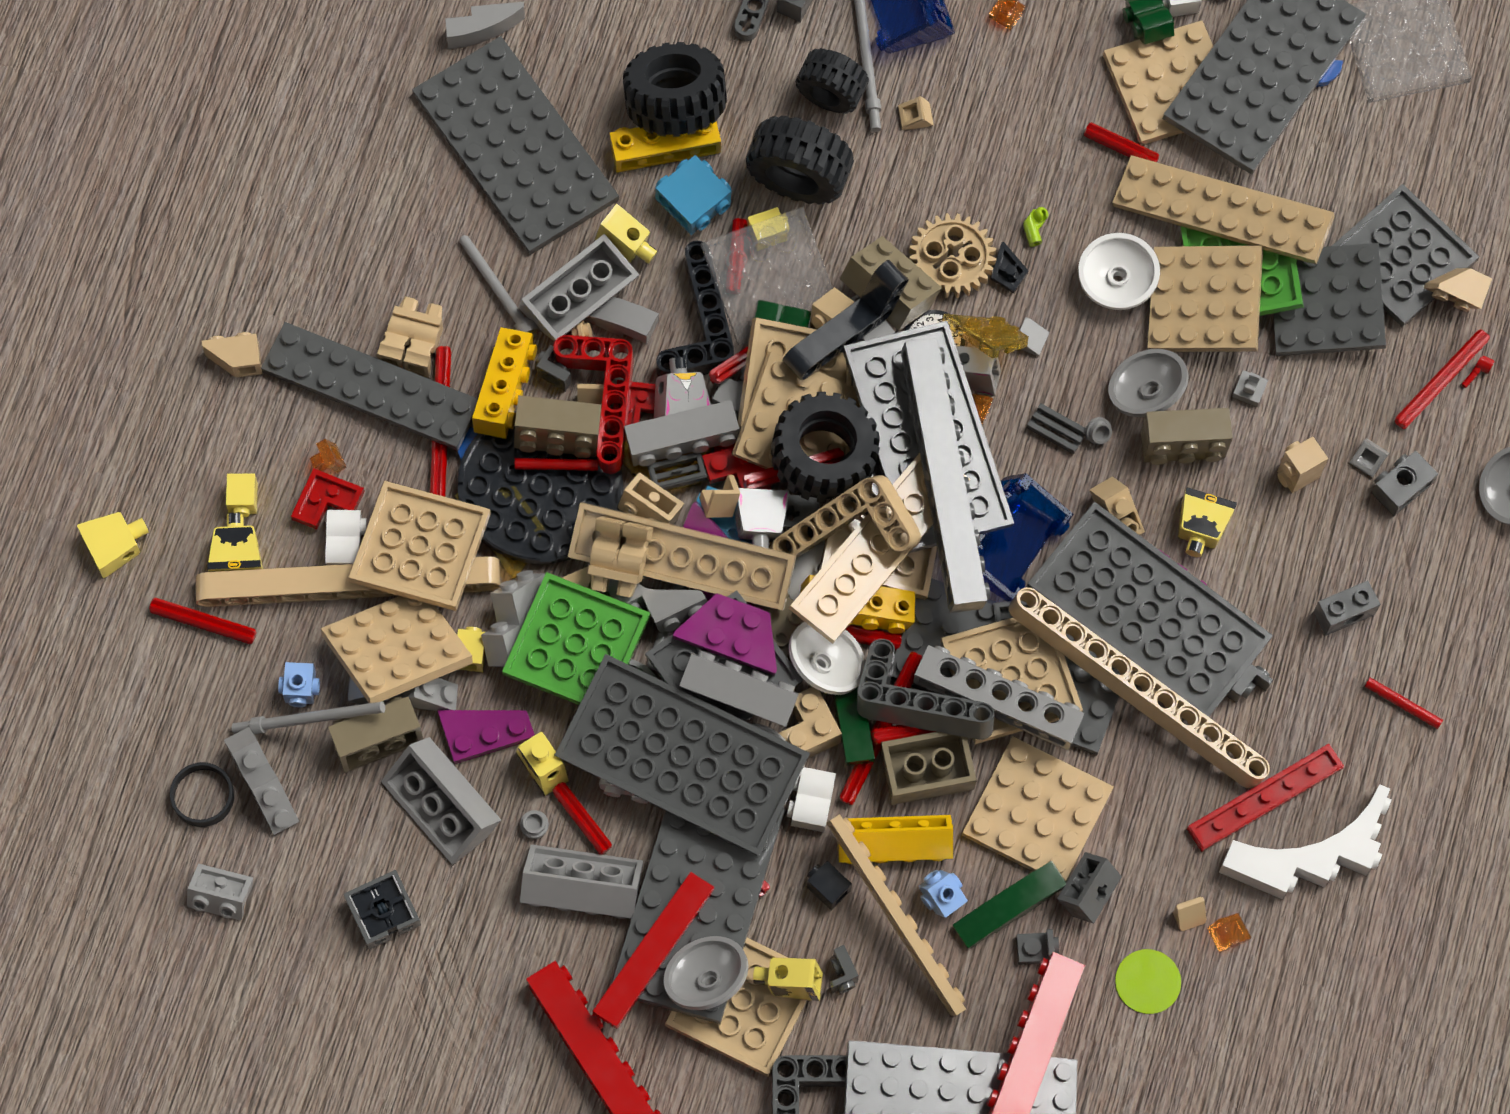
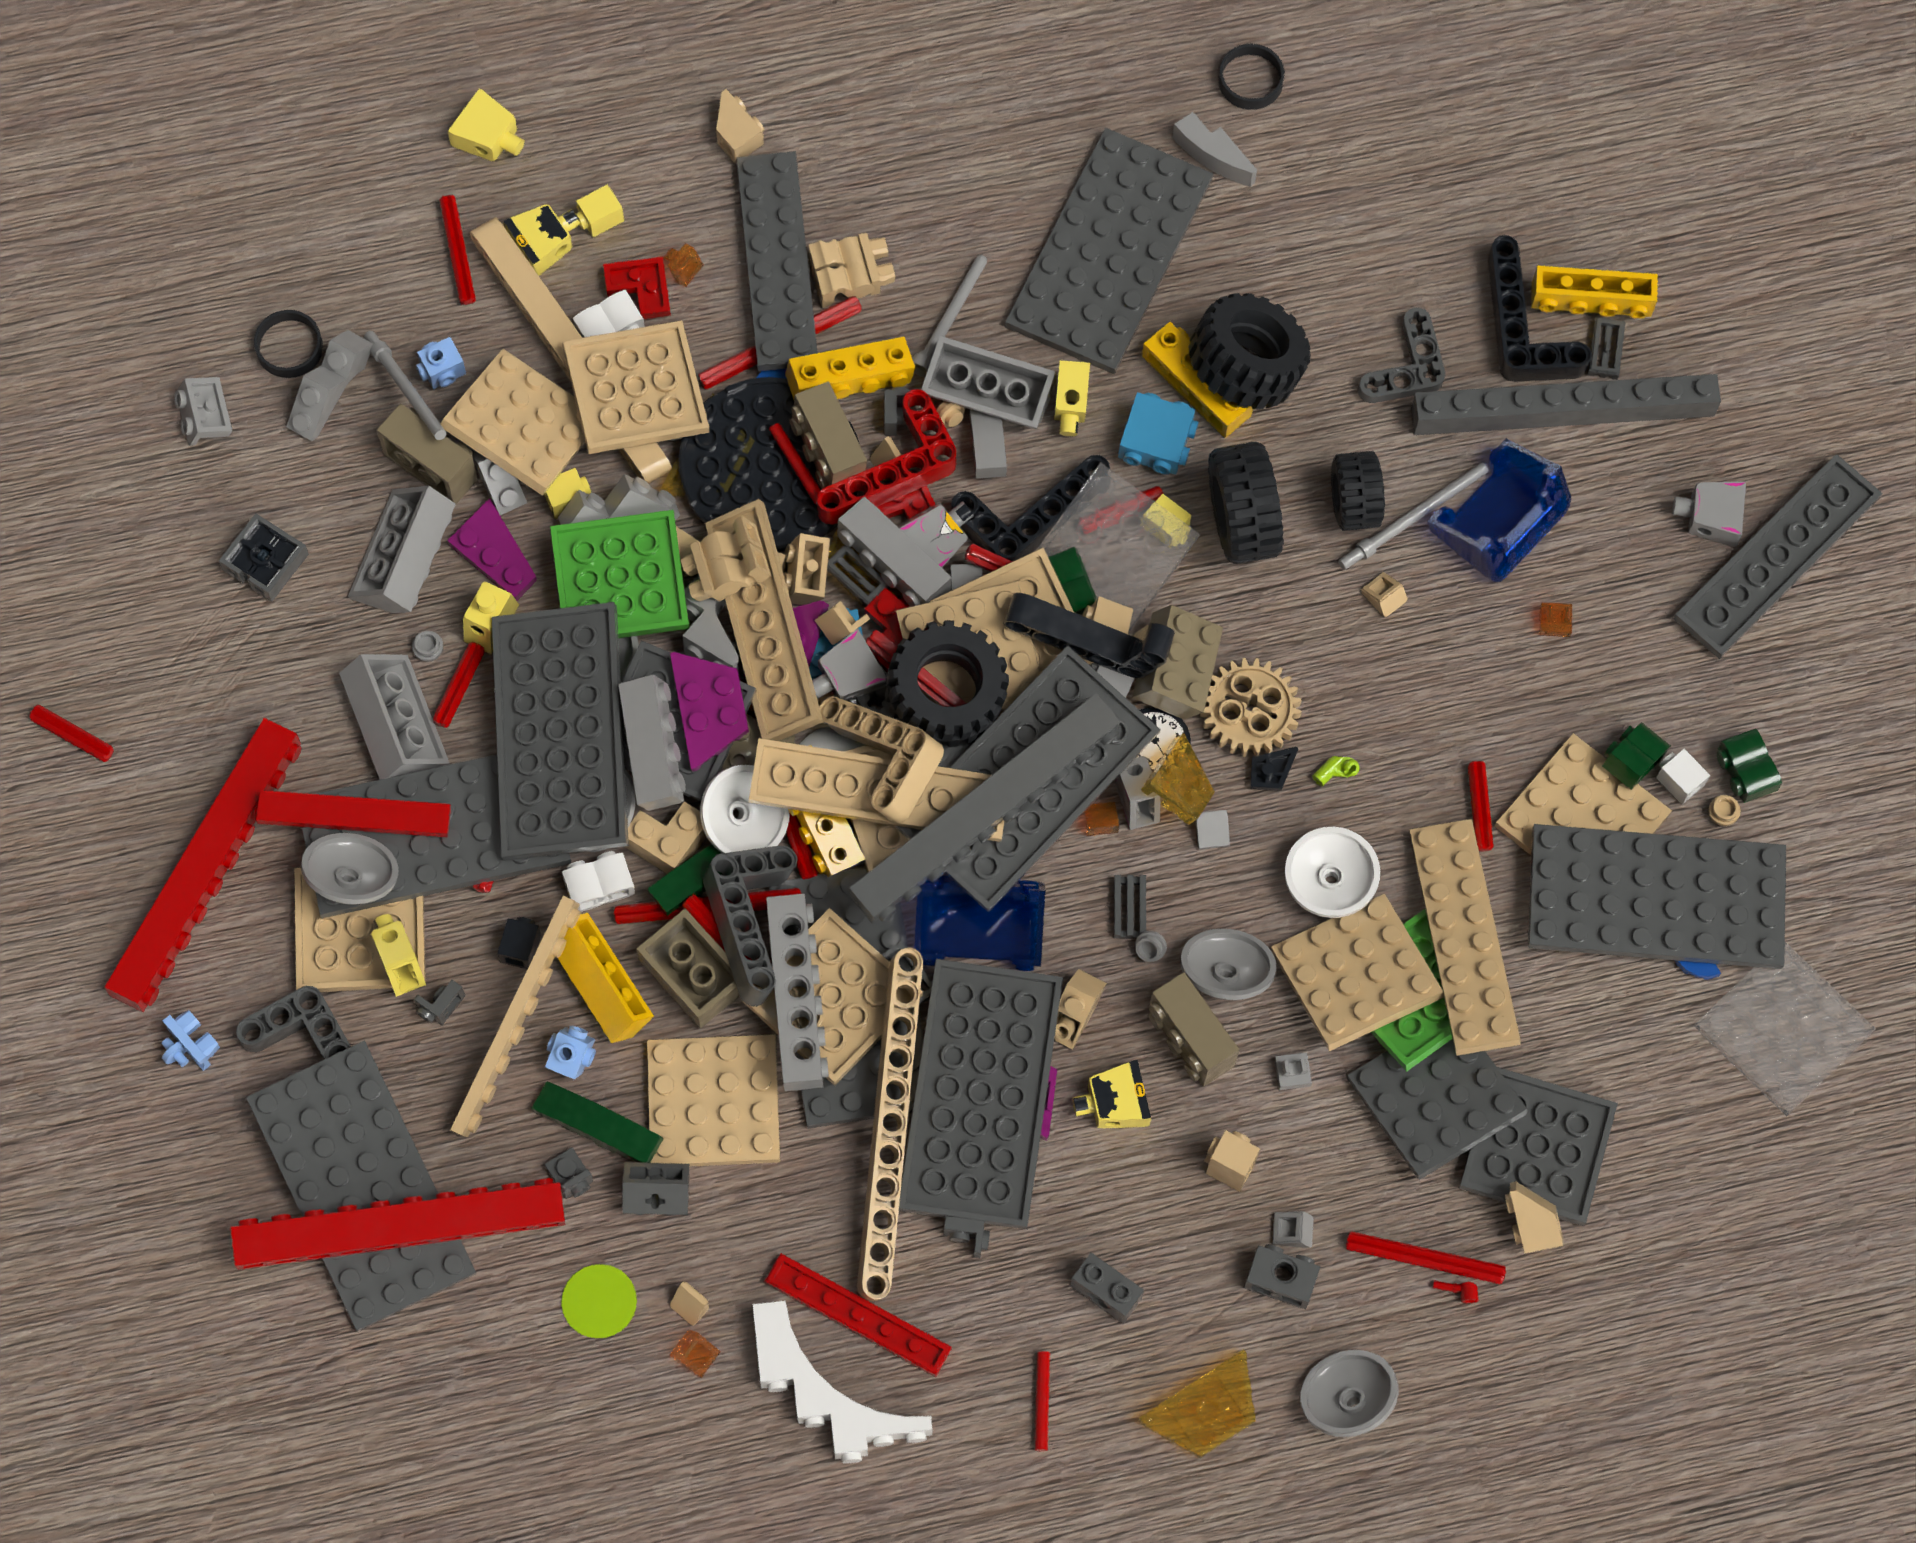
camera: 60 degrees right, 0 degrees up
(1474, 591) = (1207, 1409): none -> clear yellow wing

